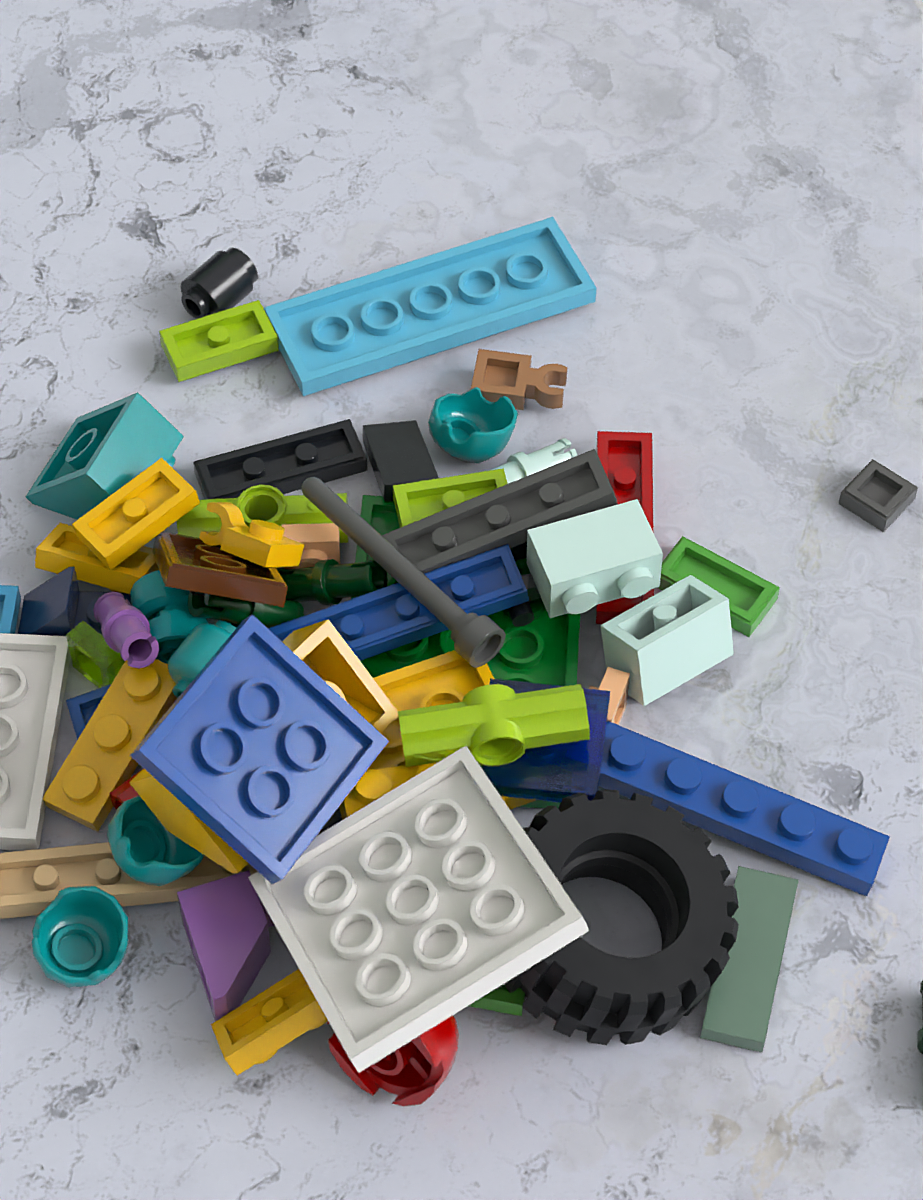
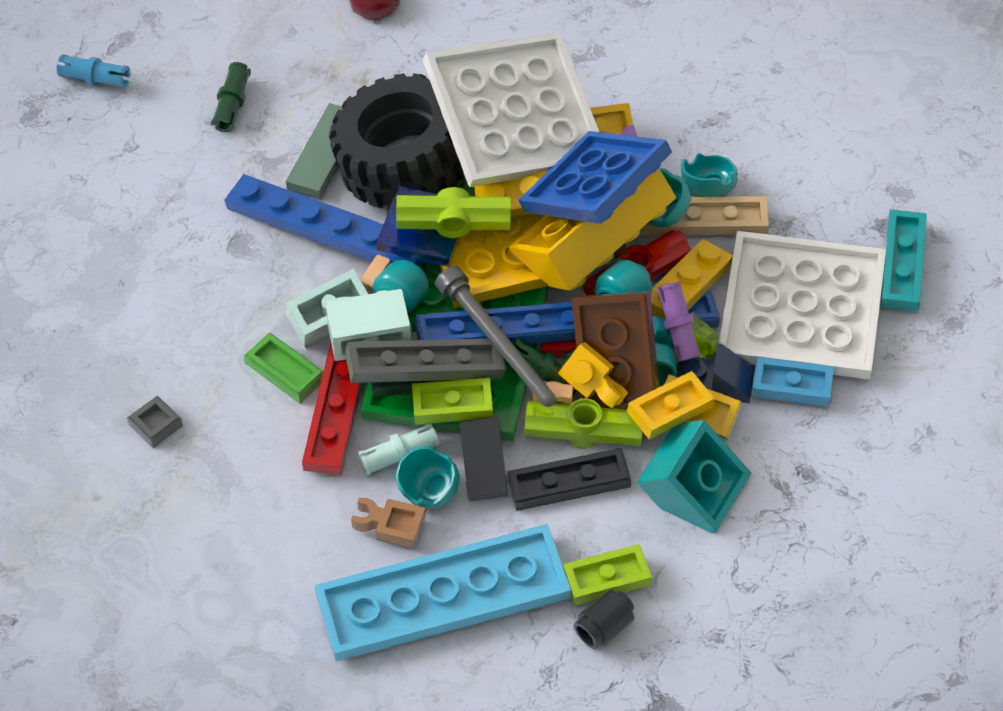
camera: 170 degrees left, 0 degrees up
(562, 652) = (404, 276): none -> teal head

